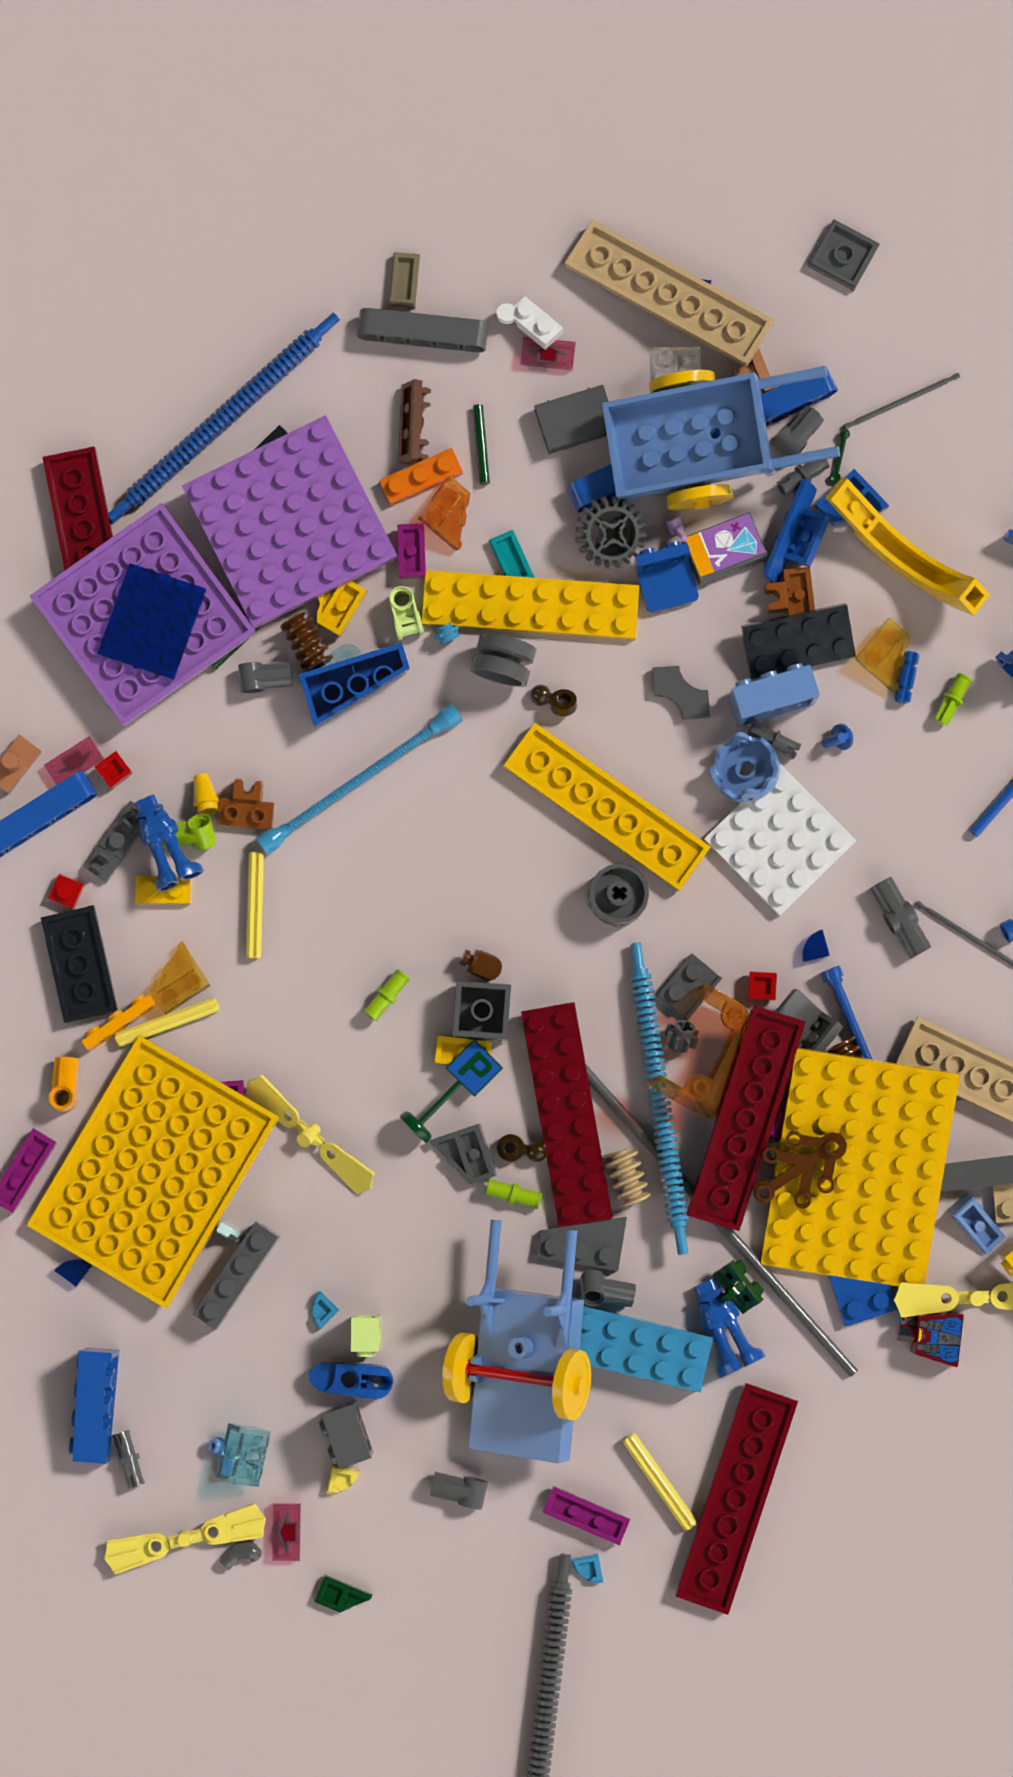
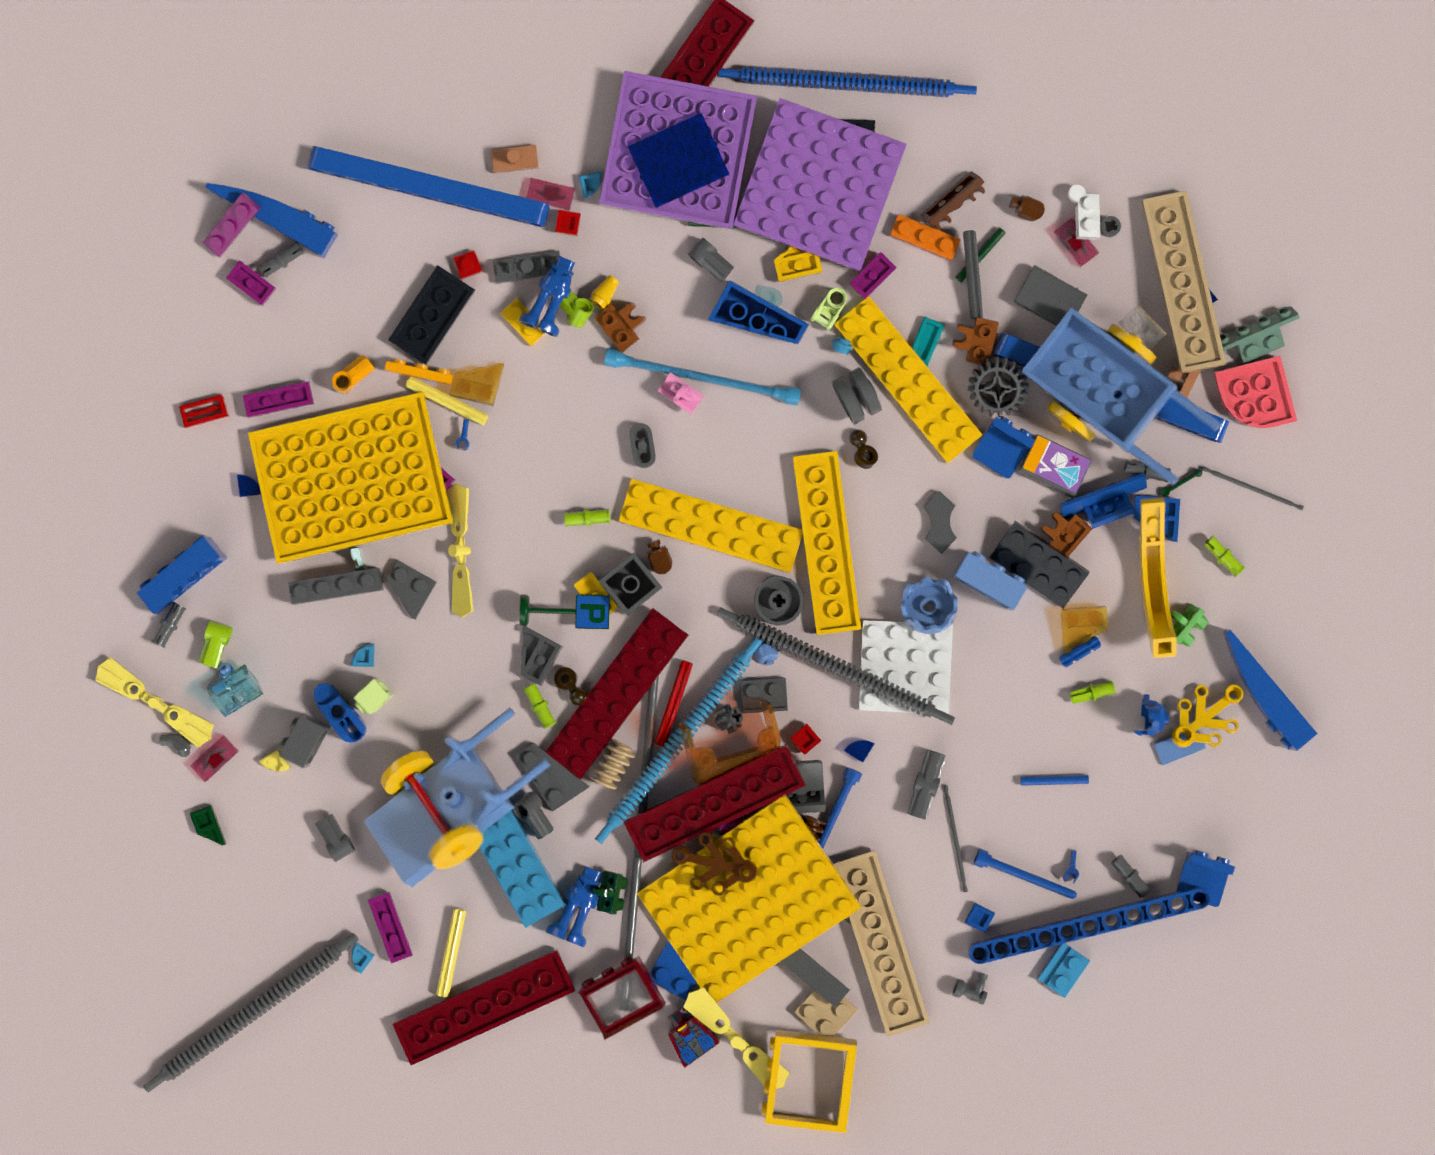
camera: 50 degrees right, 5 degrees up
(98, 719) = (590, 183): none -> dark azure tile
(181, 1427) = (216, 638): none -> lime piece
(211, 1035) = (463, 437): none -> blue hand
(254, 905) = (566, 386): light yellow axle -> none
(300, 1209) = (410, 587): none -> dark grey wing
(305, 642) = (755, 266): reddish brown piece -> none
(355, 810) = (680, 393): none -> bright pink hips
(370, 887) = (643, 445): none -> dark grey plate
(404, 280) = (1039, 110): dark tan tile -> none
(422, 330) = (1017, 151): dark grey beam -> none
(447, 512) = (917, 274): clear orange wing -> none
(478, 366) = (1027, 207): none -> reddish brown arm
(492, 464) = (973, 274): none -> dark grey axle
(496, 893) = (711, 525): none -> yellow plate
(553, 513) = (977, 339): none -> dark orange plate
(566, 305) = (1113, 232): none -> dark grey bush
(622, 1072) = (673, 703): none -> red axle
(654, 950) = (766, 654): none -> medium blue piece
(676, 527) = (1040, 424): lavender hand -> none
(774, 738) = (964, 606): dark grey axle -> none
(776, 272) = (1259, 336): none -> sand green bracket
(795, 437) = (1165, 444): dark grey piece -> none
(823, 321) = (1257, 393): none -> coral plate
(836, 852) = (771, 635): none -> dark grey hose
(840, 736) = (1004, 645): blue plate -> none
(841, 1364) = (621, 996): none -> window
(843, 255) = (1312, 366): dark grey tile -> none
(938, 478) = (1224, 556): none -> lime pin
(966, 556) = (1184, 623): none -> bright green hips
(976, 1223) = (782, 1000): medium blue slope -> none

